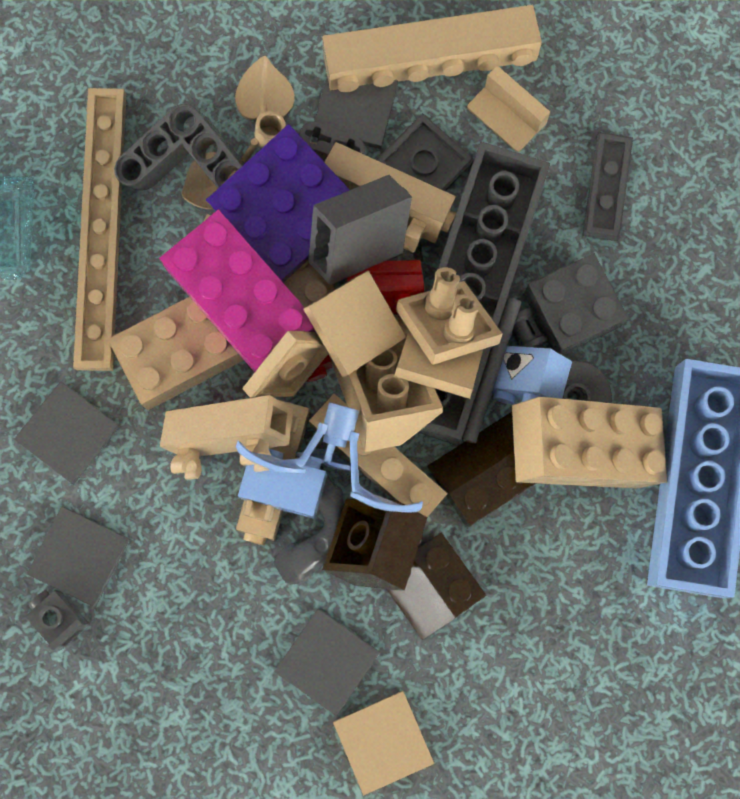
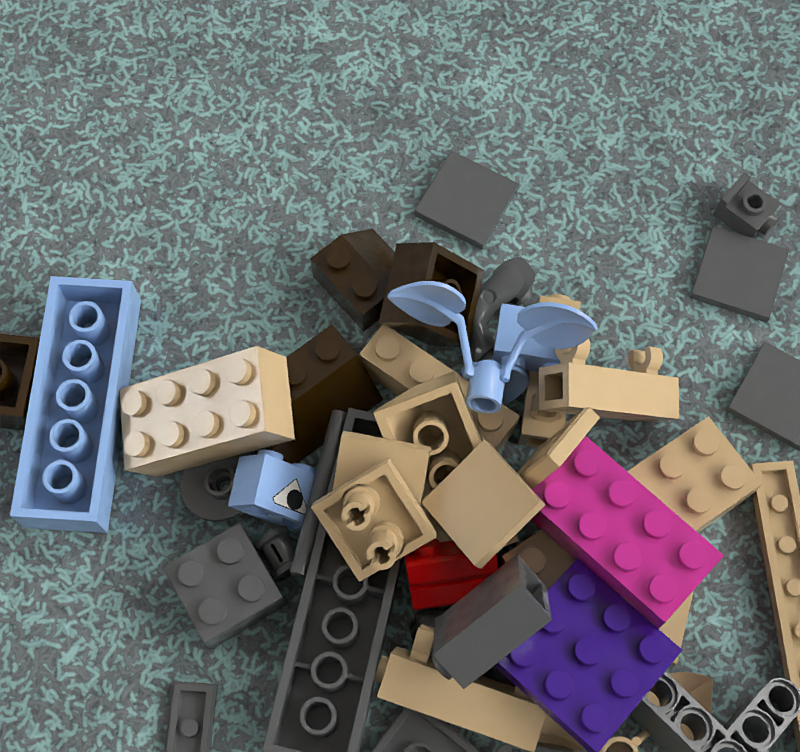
camera: 175 degrees right, 10 degrees down
(383, 742) = (402, 135): tan tile -> none

